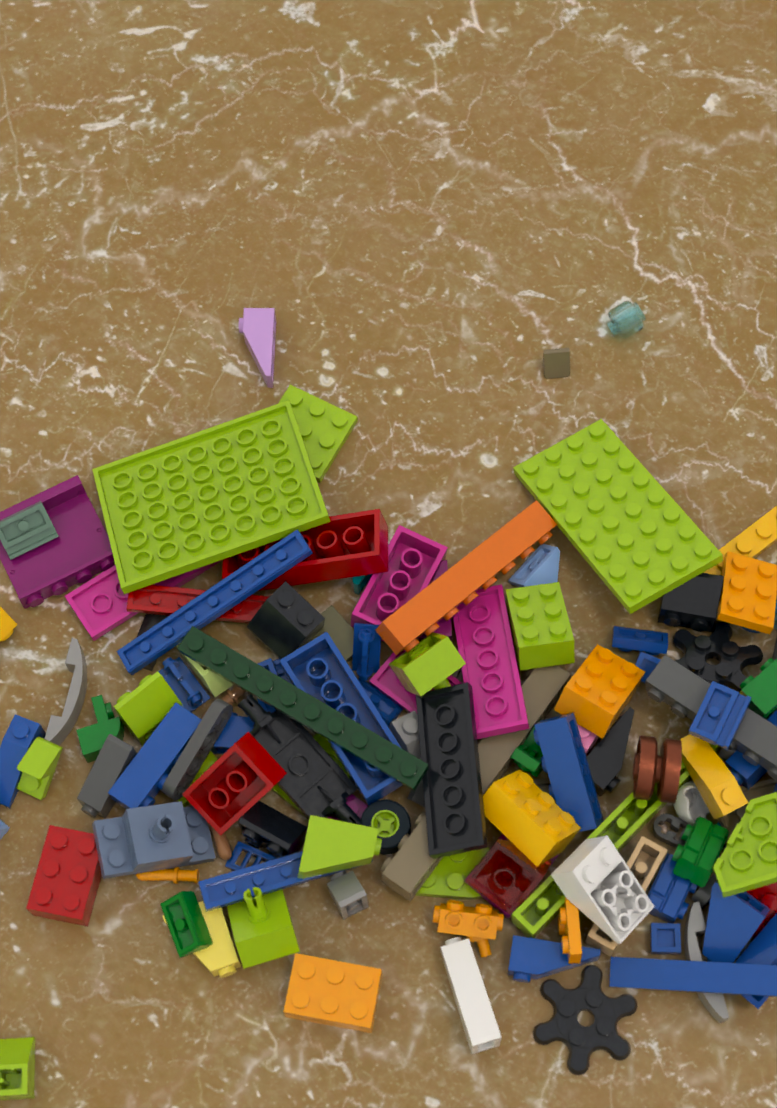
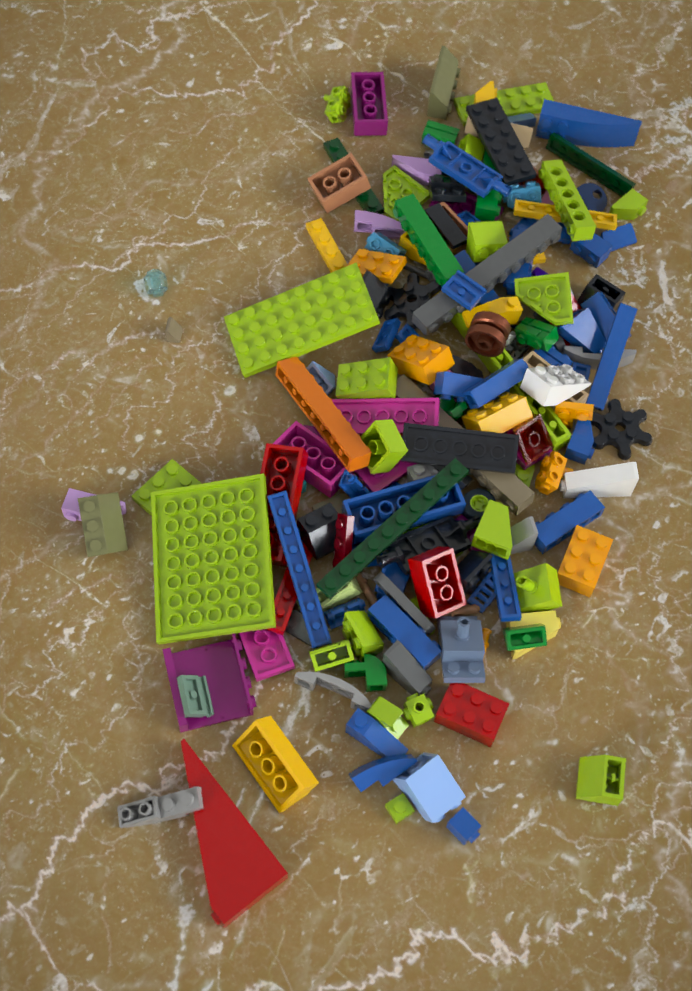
camera: 85 degrees left, 5 degrees down
(57, 804) = (418, 717): none -> lime brick
(109, 674) = (331, 655): none -> lime brick
(230, 358) = (102, 524): none -> olive slope
(271, 650) = (344, 537): none -> dark red plate
(399, 962) = (562, 524): none -> blue brick
(578, 801) = (495, 383): none -> blue brick

